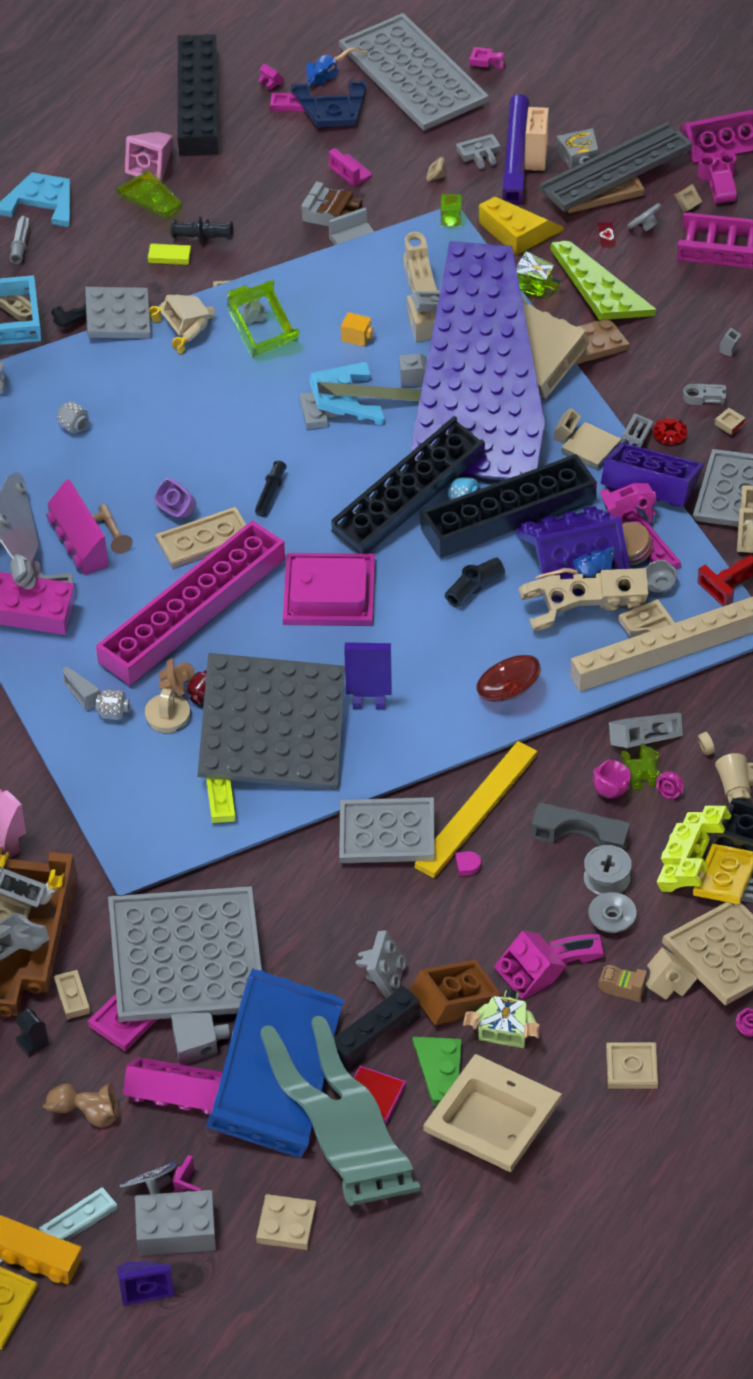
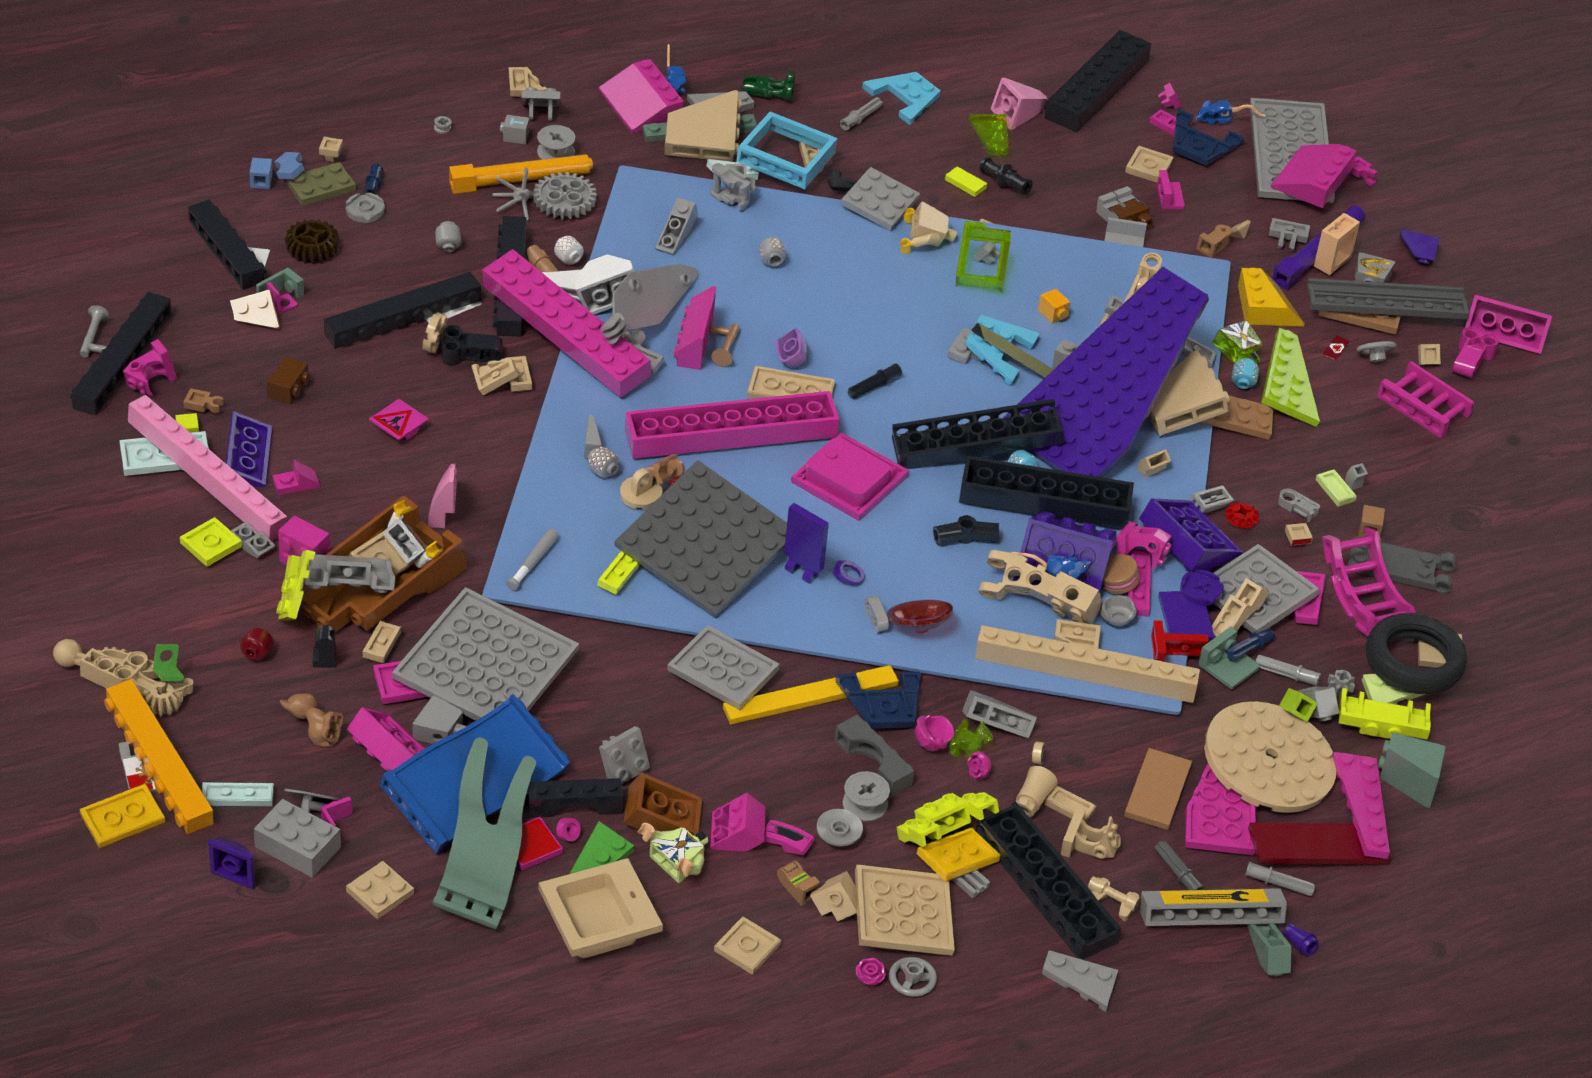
camera: 30 degrees right, 5 degrees down
(132, 826) = (533, 558): none -> light grey piece
(307, 150) = (1147, 163): none -> tan tile
(394, 1061) = (568, 829): none -> dark pink tile
(405, 684) = (841, 575): none -> dark purple piece
(427, 195) = (1215, 241): none -> medium nougat leg
(450, 210) = (1217, 261): clear neon green brick -> none
(456, 81) = (1315, 172): none -> dark pink slope
(467, 863) = (764, 728): dark pink tile -> none
(469, 701) = (876, 614): none -> light grey beam
(546, 783) = (883, 707): none -> dark blue wing
(562, 300) = (1245, 373): none -> medium azure head
(591, 445) = (1162, 485): tan tile -> none
(596, 103) = (1420, 245): none -> dark purple slope
(704, 515) = (1201, 587): none -> dark purple tile
(710, 546) = (1184, 616): none -> dark purple tile
(719, 362) = (1336, 488): none -> yellowish green tile

